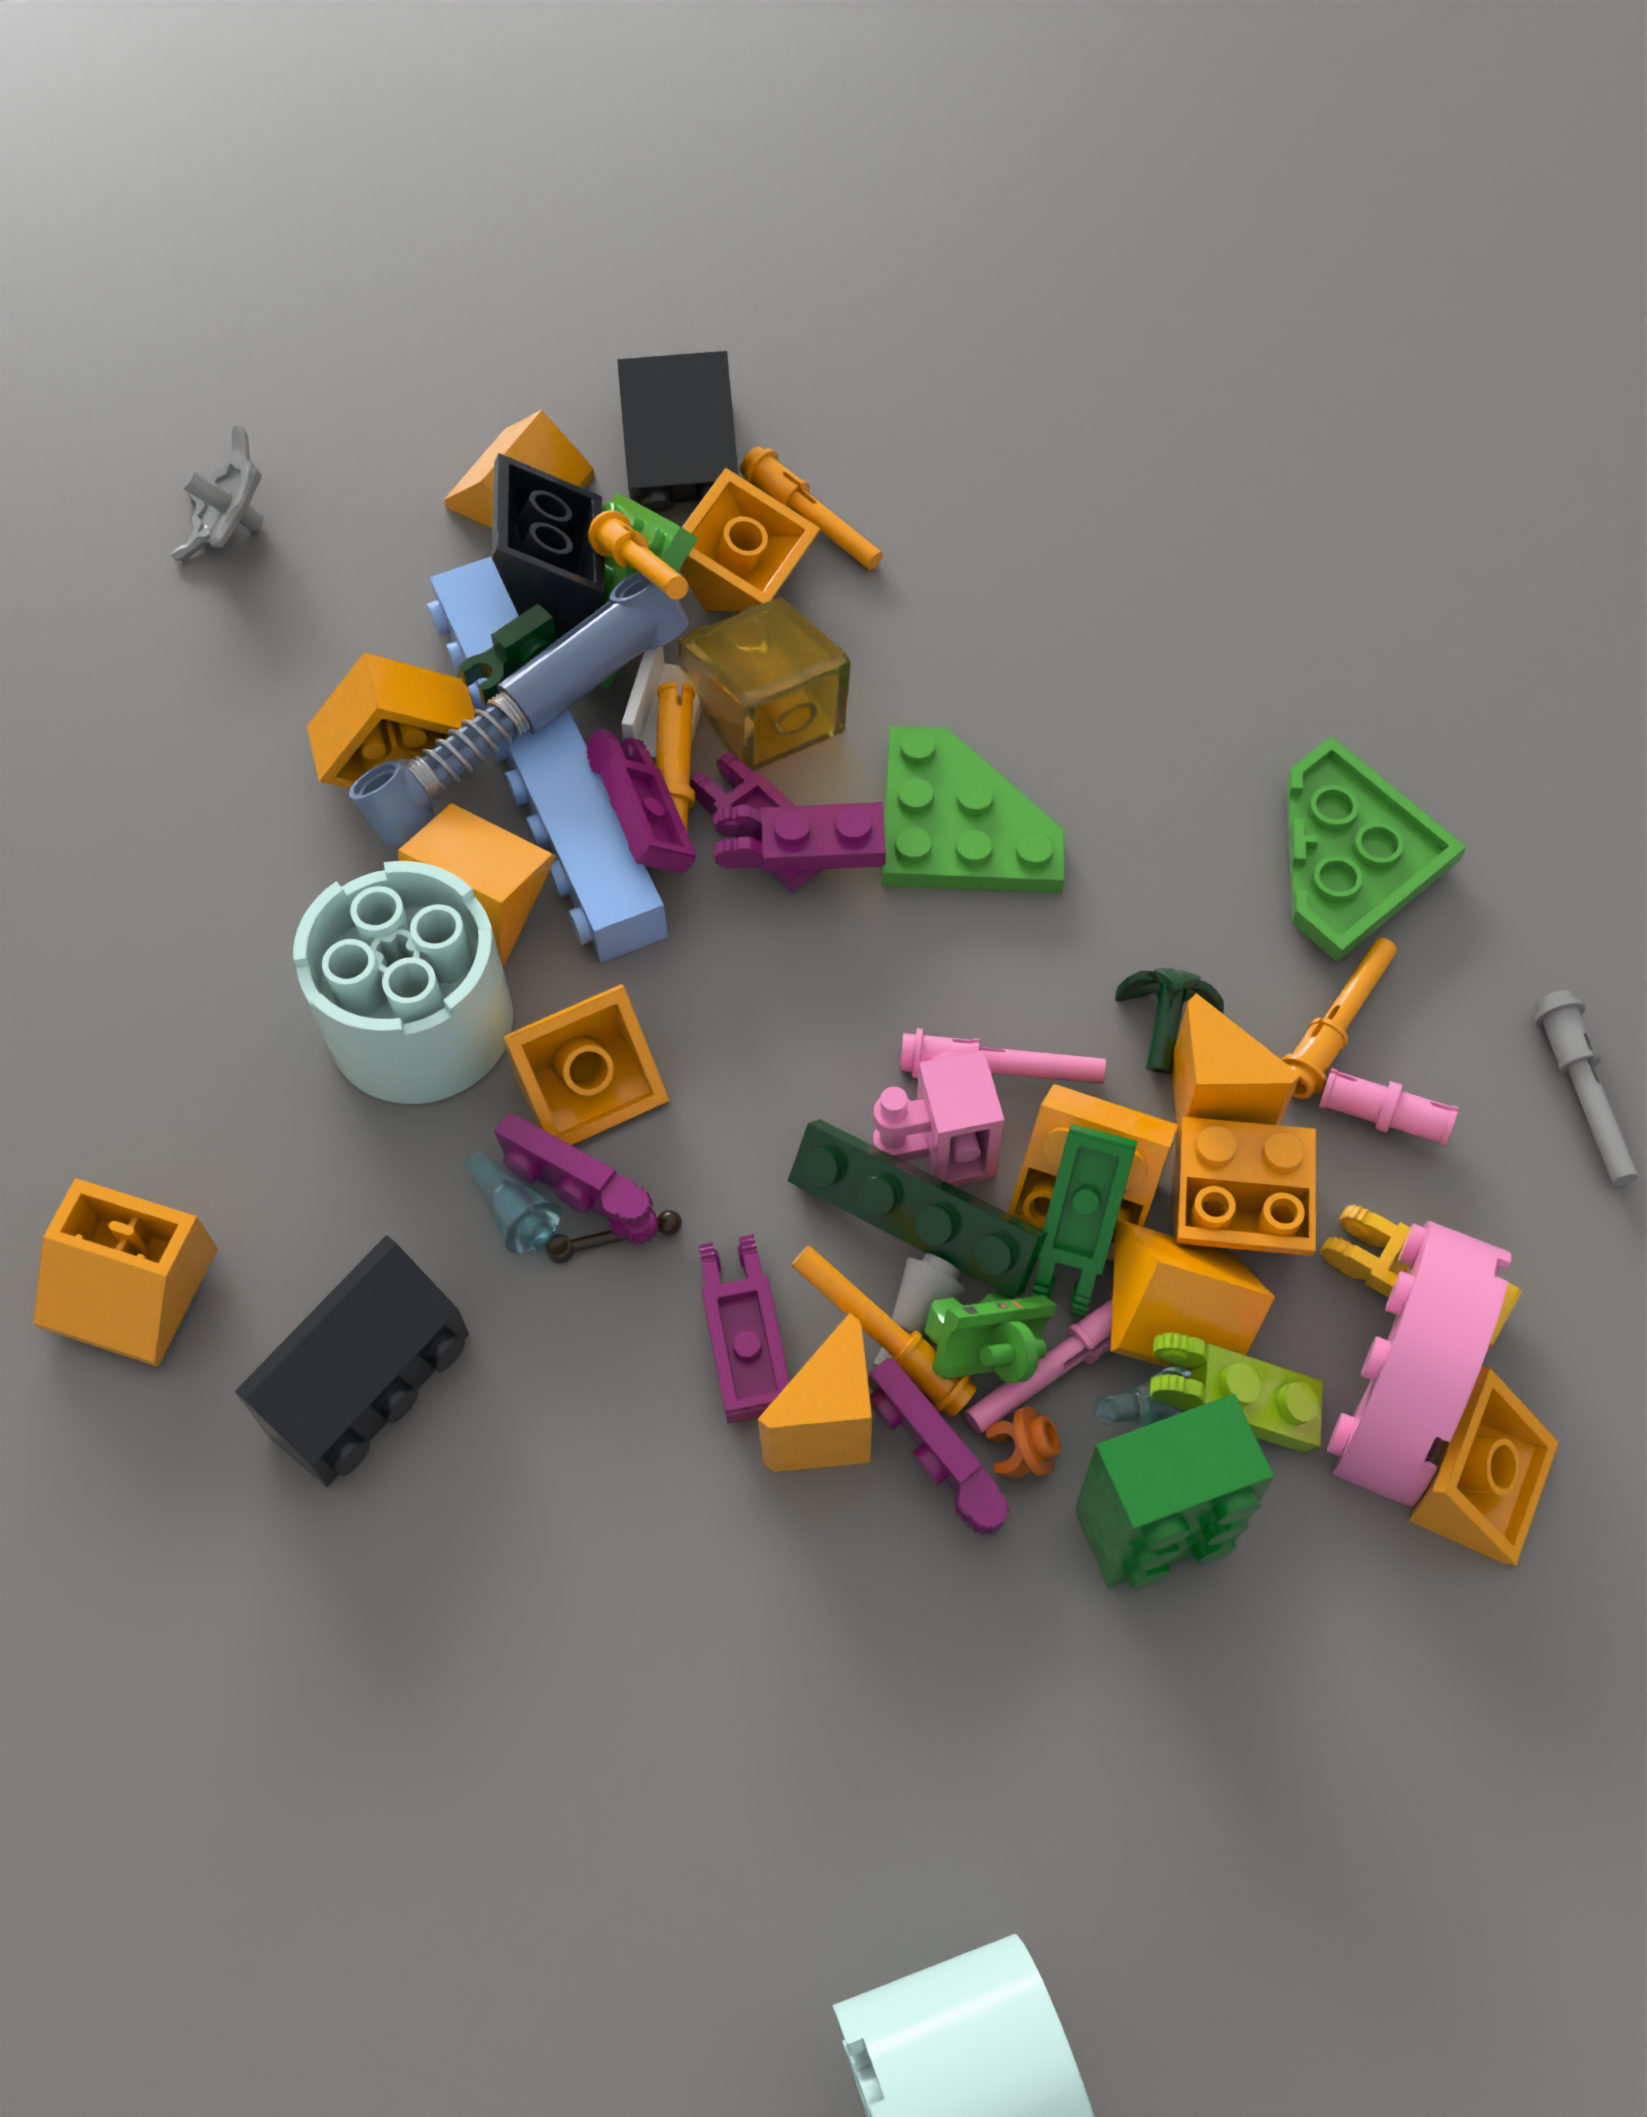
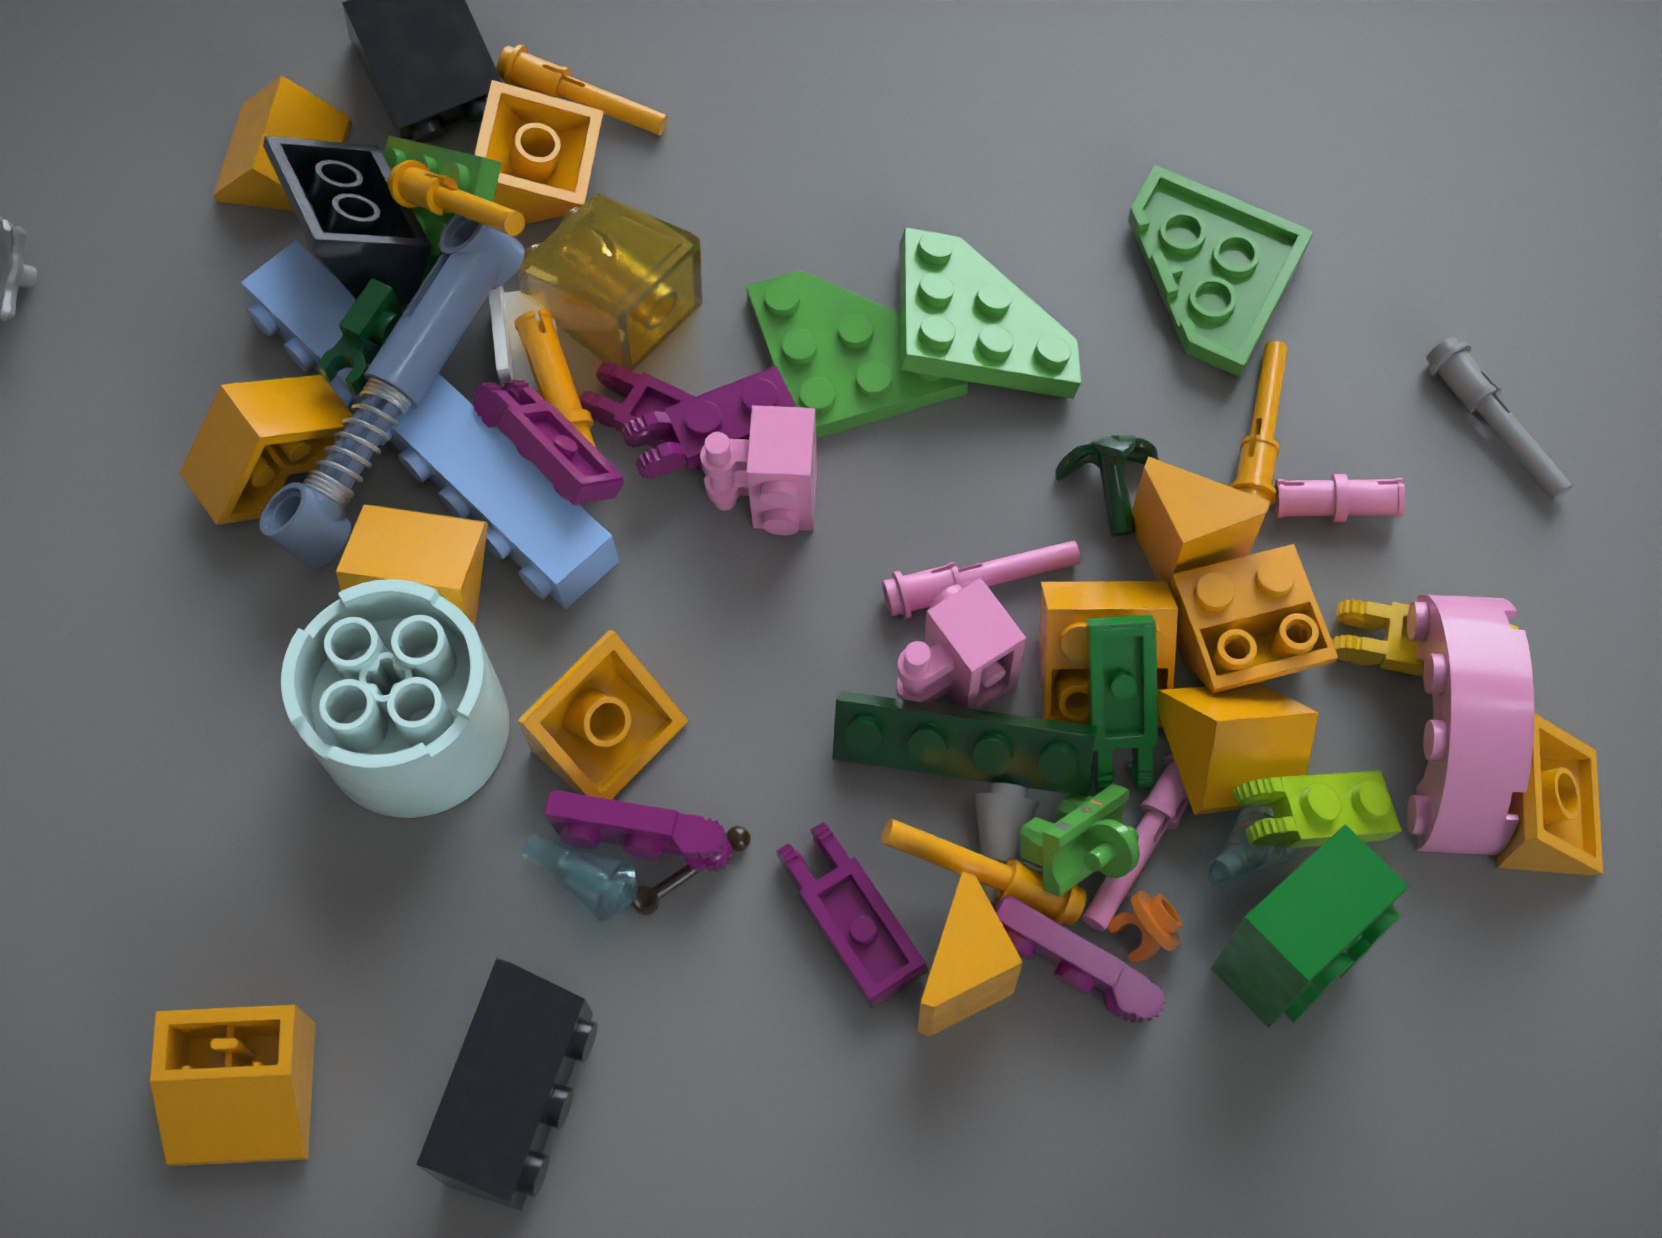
camera: 20 degrees left, 5 degrees up
(839, 890) = (771, 468): none -> bright pink brick
(1095, 827) = (975, 323): none -> plate

